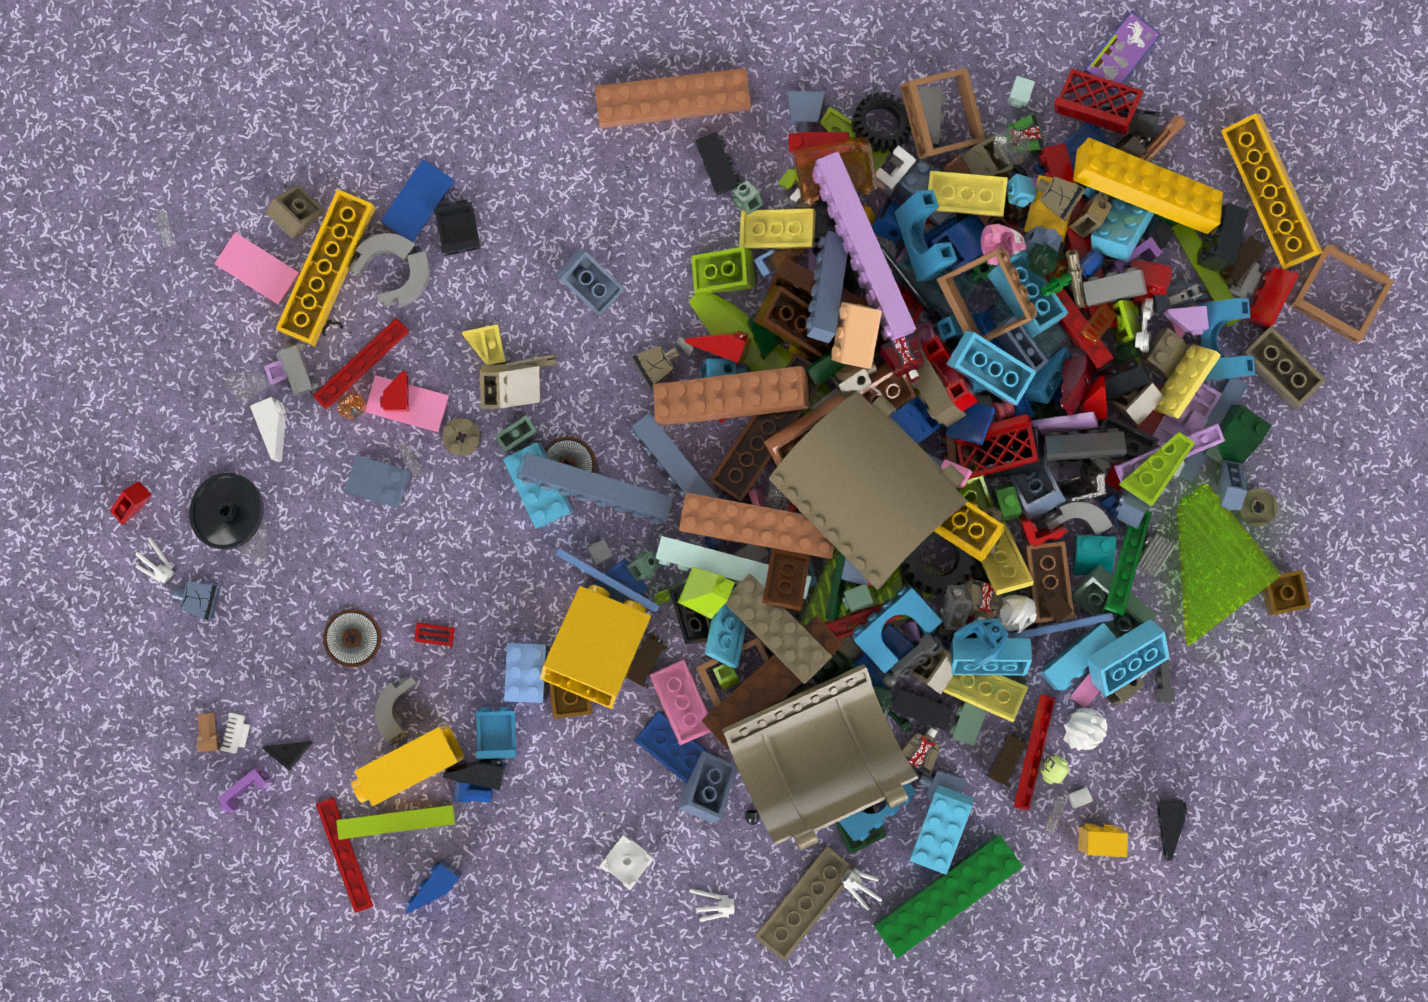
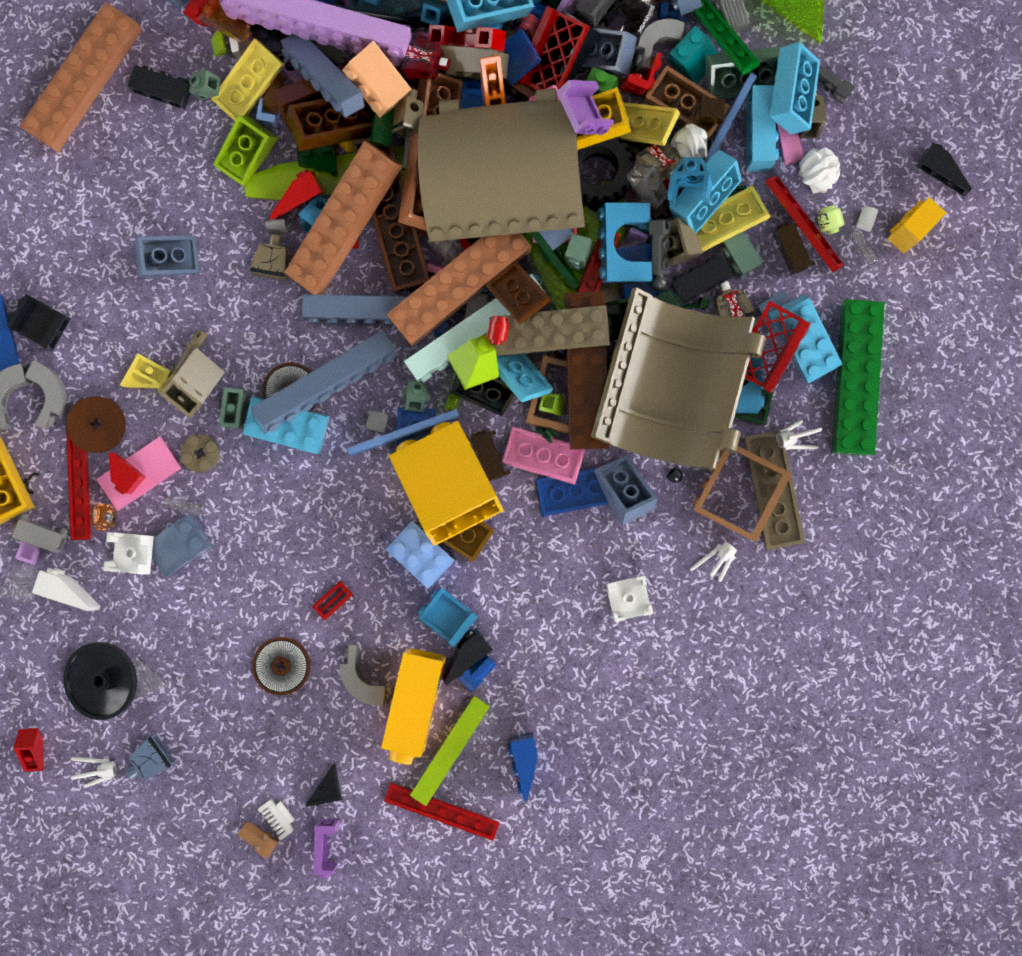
camera: 45 degrees left, 0 degrees up
(341, 450) = (131, 553): none -> white panel
(401, 339) = (86, 412): none -> reddish brown piece
(700, 692) = (547, 434): none -> dark green hand
(743, 590) = (498, 330): none -> red brick
(767, 848) = (708, 484): none -> medium nougat window
(917, 824) = (788, 350): none -> red fence
(928, 425) = (492, 80): none -> orange slope
(962, 514) = (581, 107): none -> medium lavender panel

